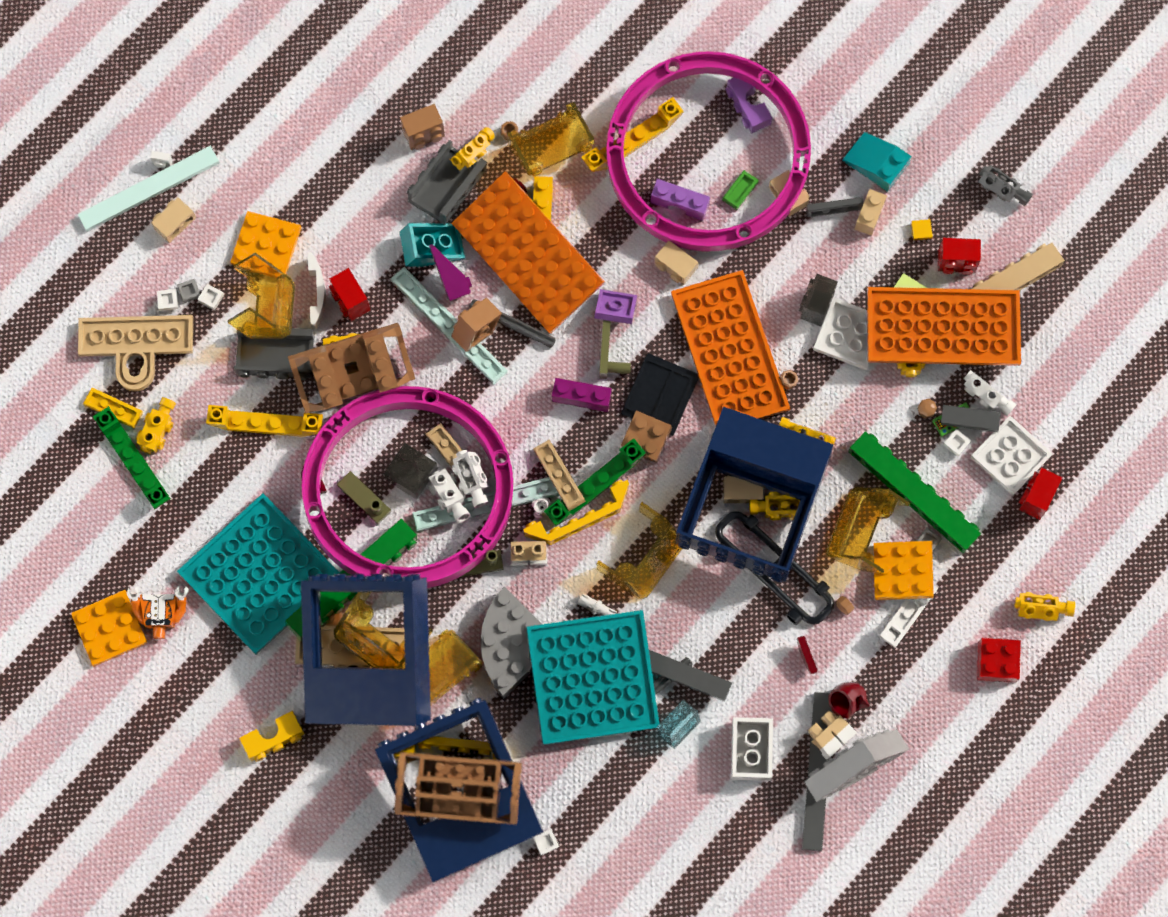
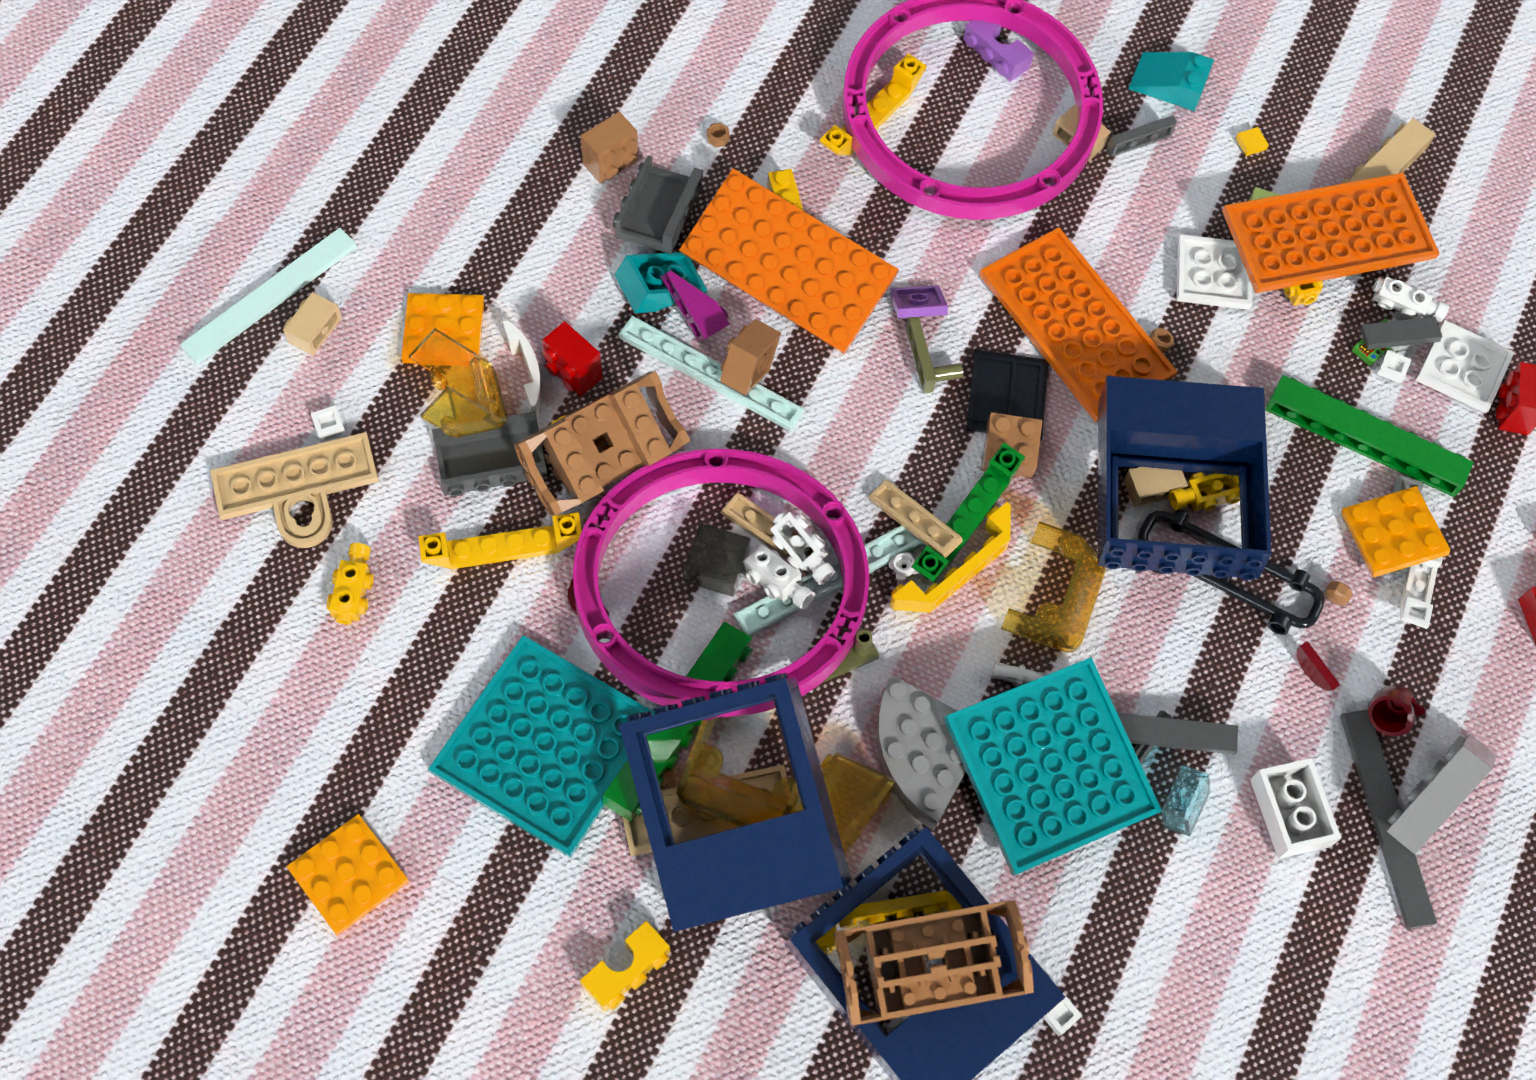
camera: 20 degrees left, 10 degrees down
(124, 412) = (284, 576): yellow tile -> none
(131, 457) = (323, 632): green slope -> none
(159, 610) = (415, 829): torso -> none
(161, 159) = (278, 255): white plate -> none
(188, 290) = (354, 406): light grey tile -> none
(210, 297) = (385, 405): white plate -> none
(364, 498) = (662, 610): olive piece -> none
(473, 149) = (680, 161): yellow brick -> none
(524, 329) = (813, 356): dark grey axle -> none
(528, 551) = (911, 622): tan hips -> none
(551, 141) = (777, 130): clear yellow windscreen -> none
(581, 394) = (910, 414): magenta brick -> none
(676, 263) = (974, 236): tan brick -> none
(691, 202) = (970, 163): medium lavender arch -> none
(740, 190) = (1021, 143): bright green tile -> none
(816, 304) = (1166, 237): clear smoke brick -> none
(833, 736) = (1393, 764): tan hips -> none
(857, 525) = (1312, 489): clear yellow windscreen -> none
(870, 212) = (1187, 132): tan brick -> none
(927, 408) = (1340, 336): medium nougat tile -> none
(959, 255) = (1312, 153): red brick -> none
(1001, 186) = (1324, 71): dark grey brick -> none

